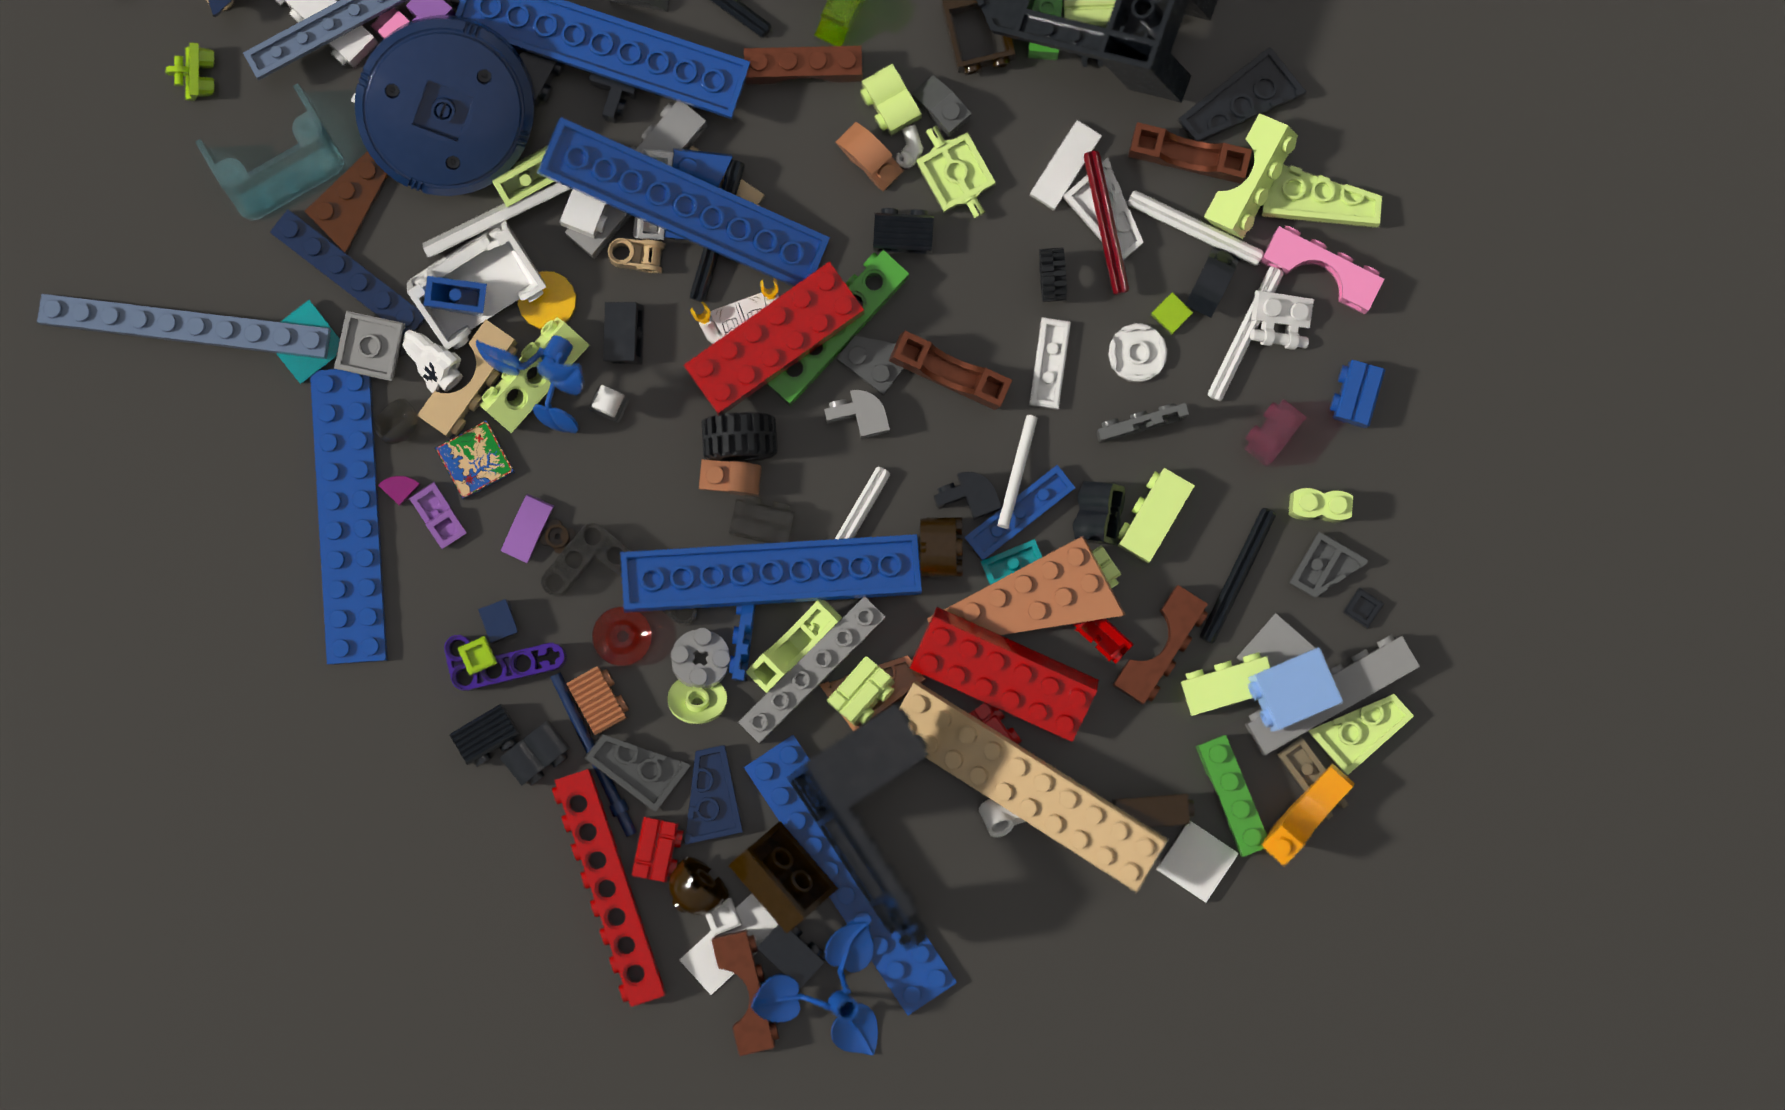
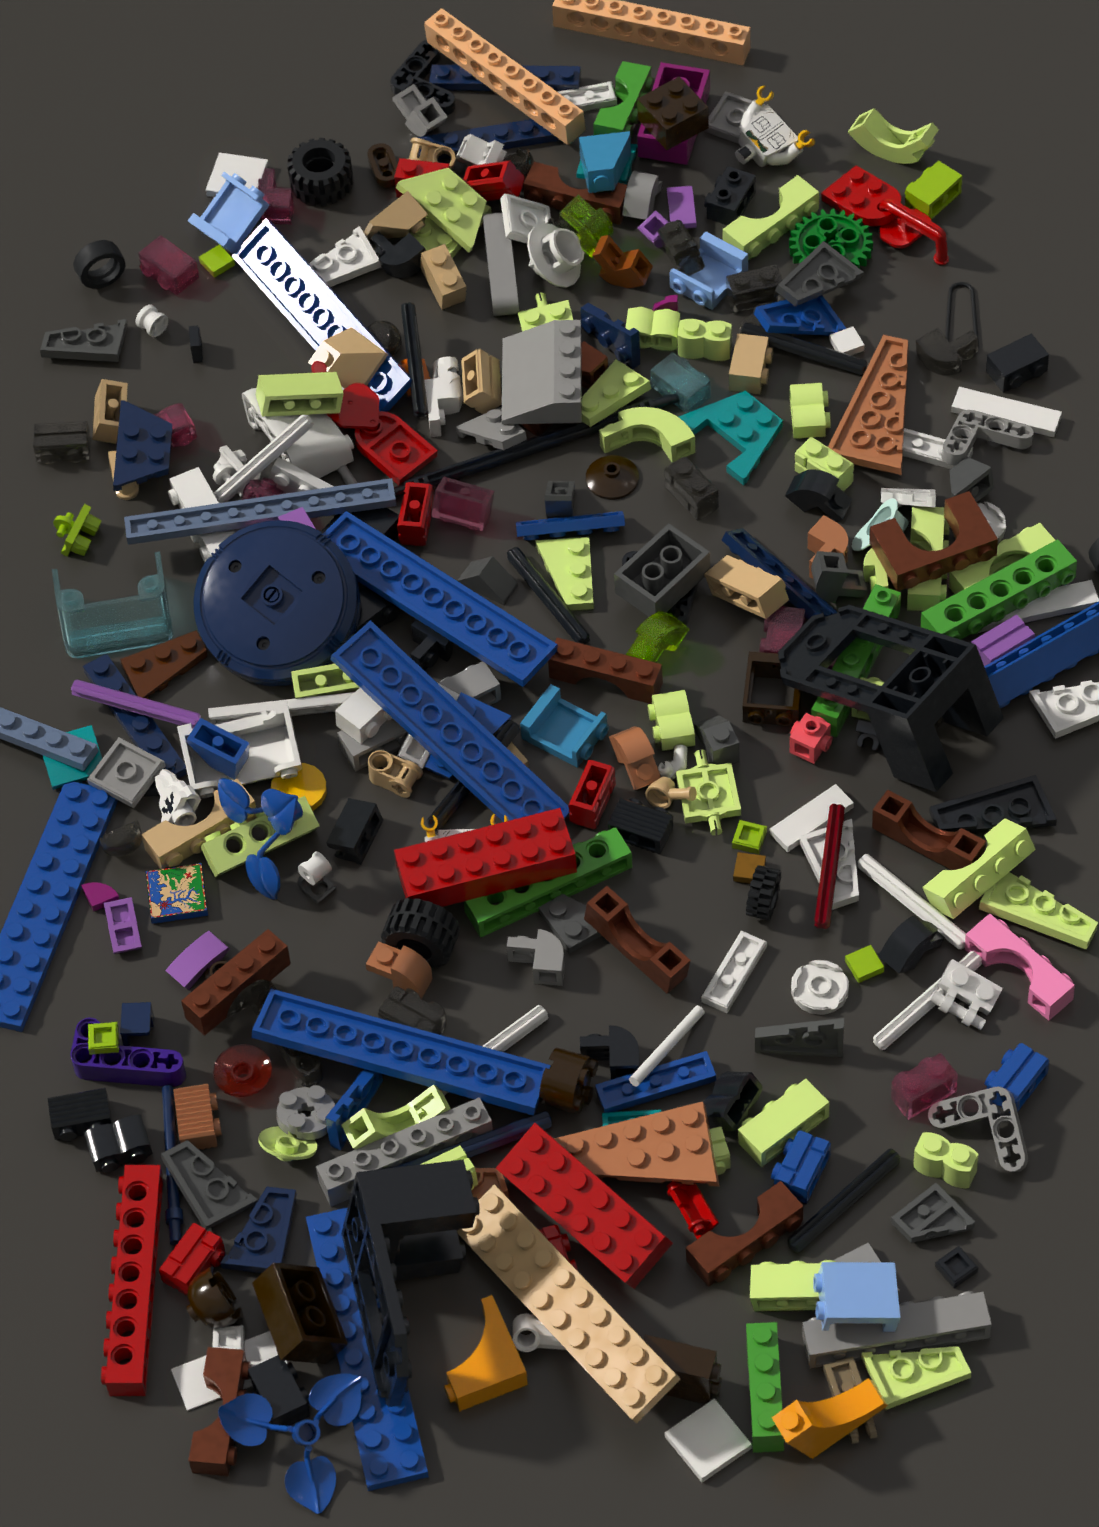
camera: 25 degrees right, 30 degrees down
(346, 265) = (134, 703): none -> medium lavender axle
(583, 556) = (212, 999): none -> copper arch
(786, 143) = (563, 728): none -> dark azure panel
(844, 217) = (592, 794): none -> red brick
(870, 644) = (491, 1139): none -> dark blue axle
(910, 186) = (663, 792): none -> tan bar
(978, 858) = (492, 1367): none -> light orange arch
(1012, 206) = (749, 837): none -> lime tile
(1024, 243) = (746, 866): none -> pearl gold tile
(1032, 86) = (810, 737): none -> coral brick
(1188, 556) = (802, 1164): none -> blue brick
(1345, 442) = (987, 1110): none -> light grey beam

